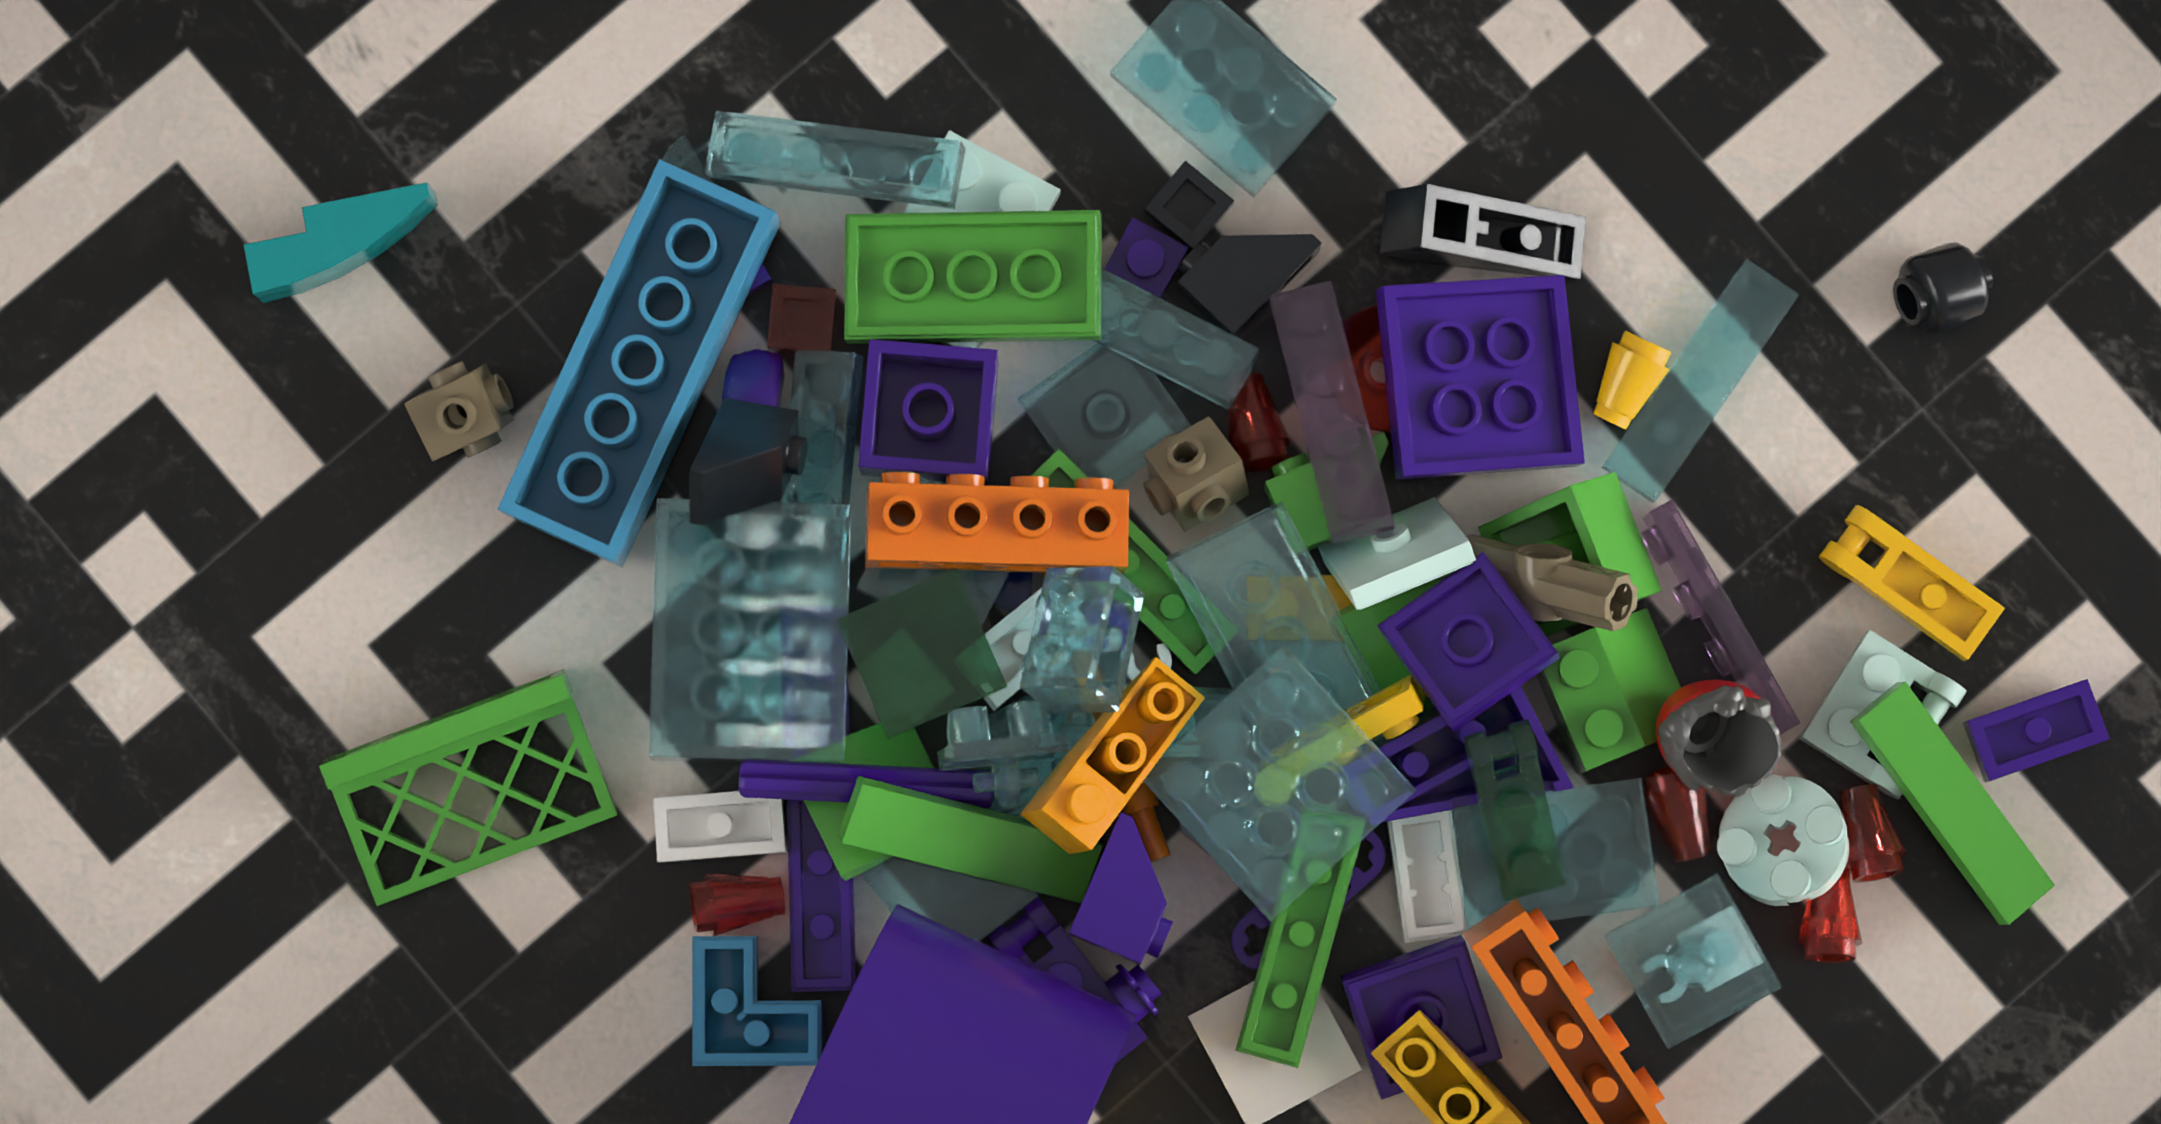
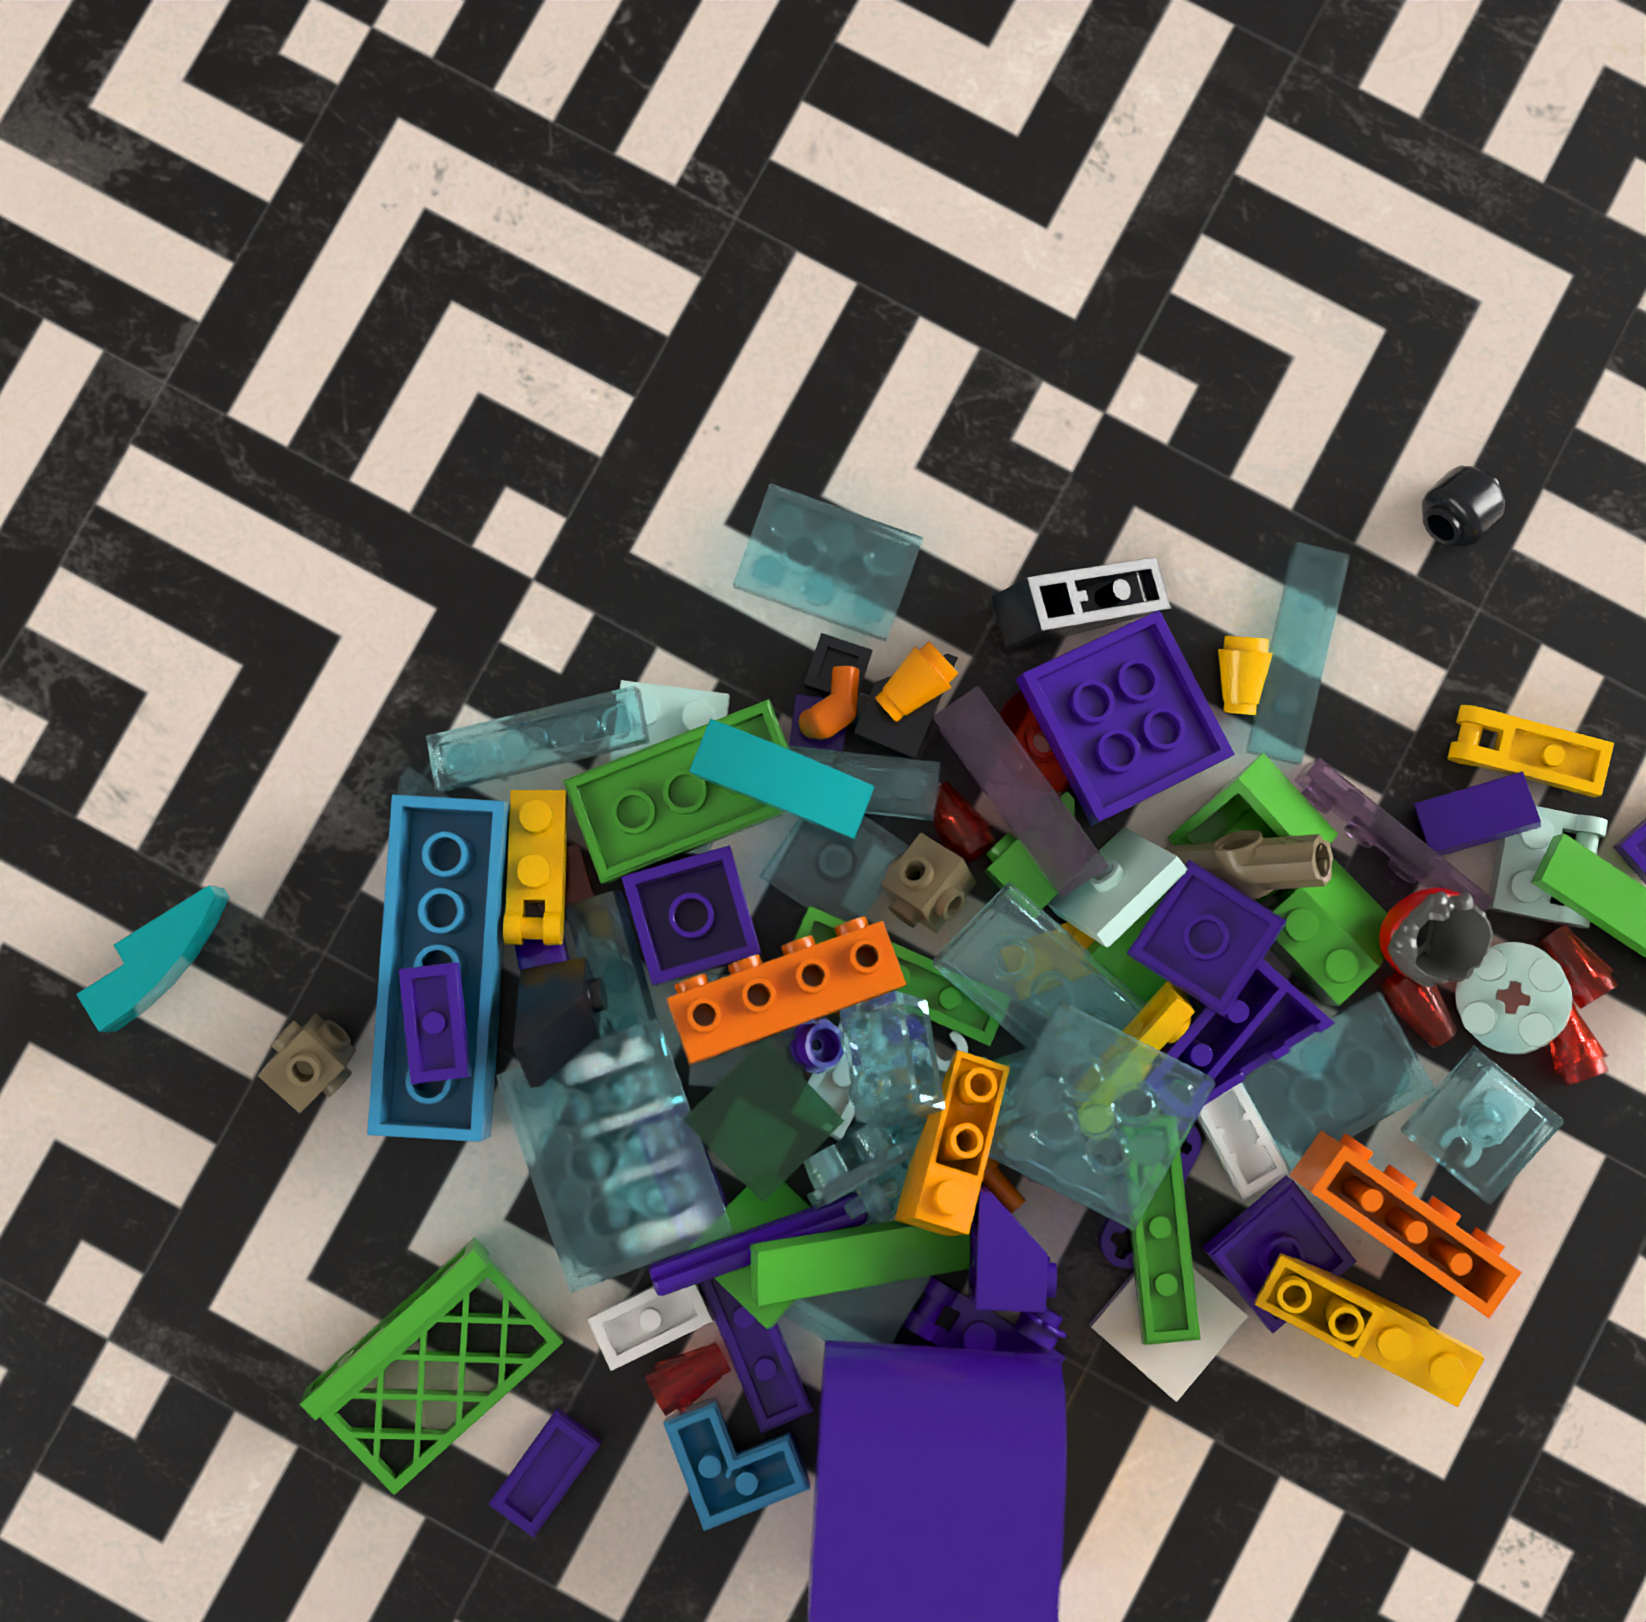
camera: 25 degrees left, 0 degrees up
(545, 945) = (545, 1472): none -> dark purple tile
(615, 416) = (435, 1023): none -> dark purple plate
(783, 294) = (536, 865): none -> yellow plate
(1023, 599) = (829, 1045): none -> dark purple plate
(1079, 299) = (781, 779): none -> teal slope
(1168, 249) = (837, 709): none -> orange arm
(1265, 251) = (916, 681): none -> light orange cone
(1515, 811) = (1297, 1061): clear green plate -> none
(1823, 629) = (1478, 814): none -> dark purple tile

